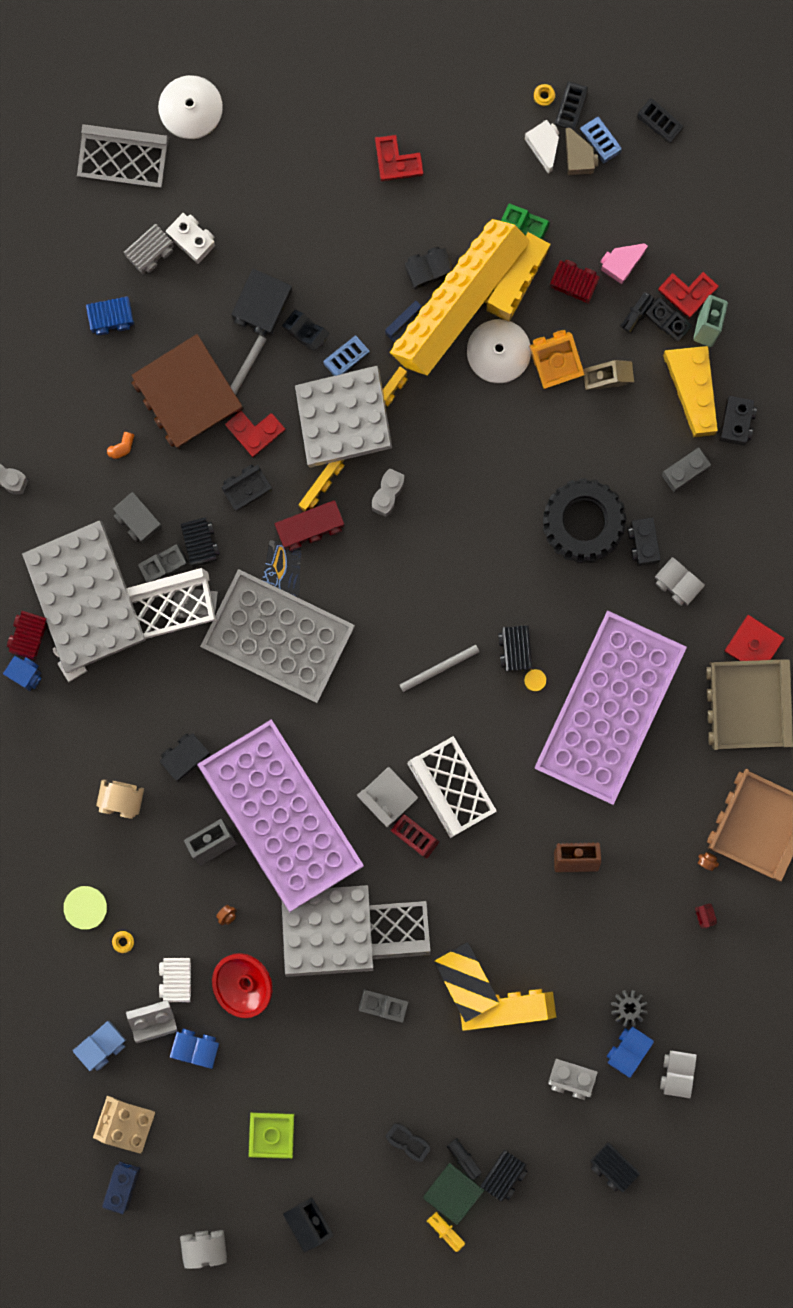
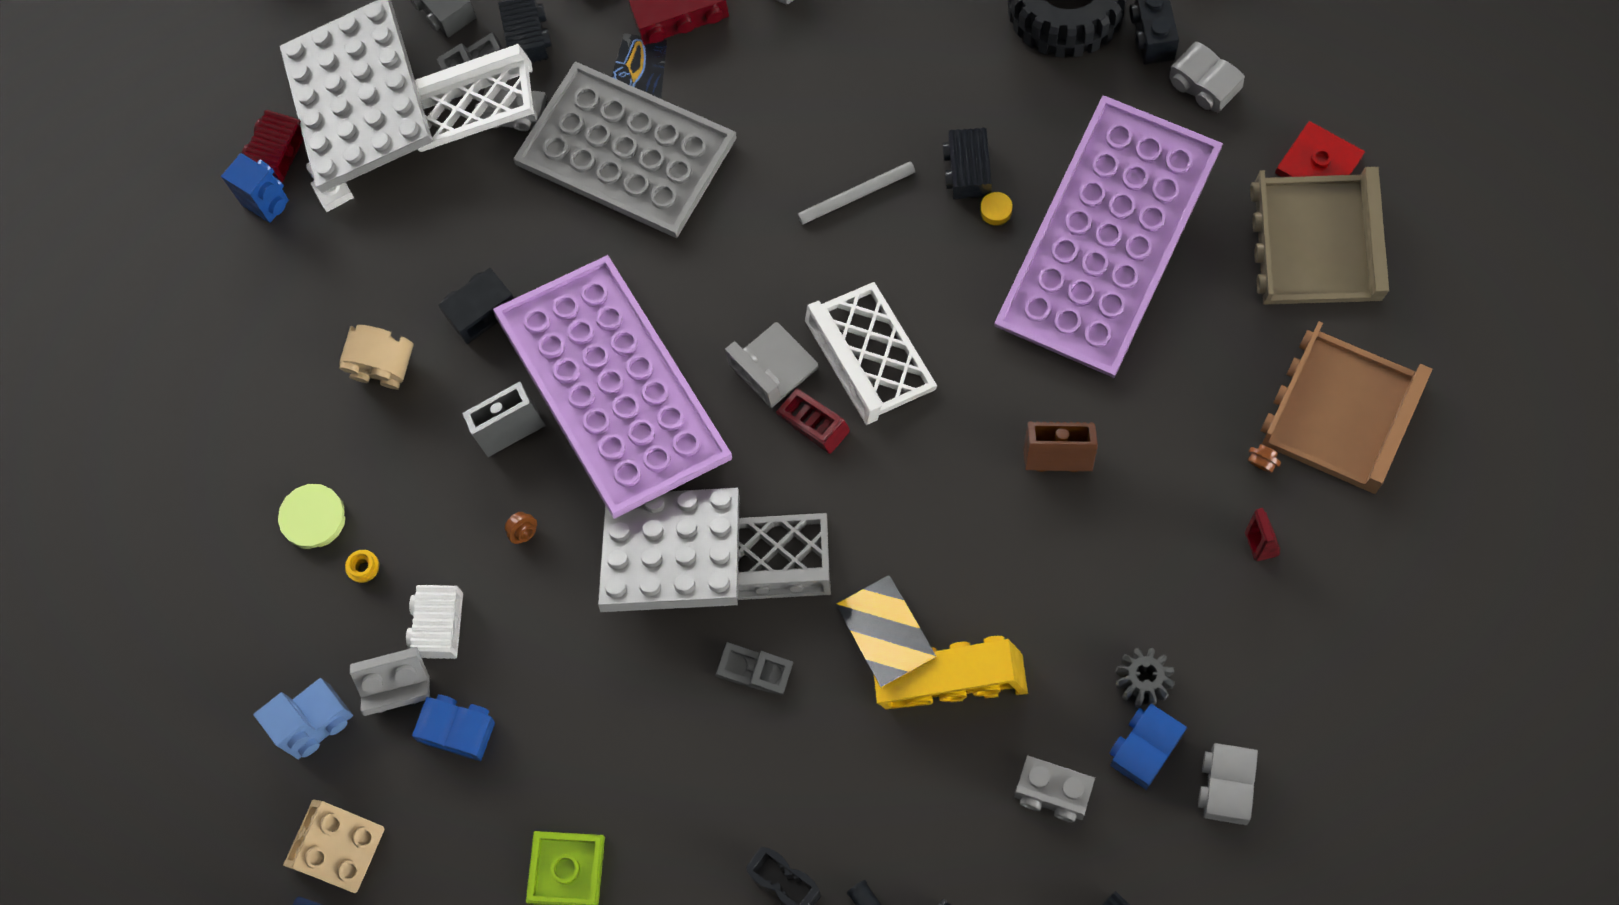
camera: 10 degrees right, 15 degrees down
(233, 989) = (521, 628): red dish -> none

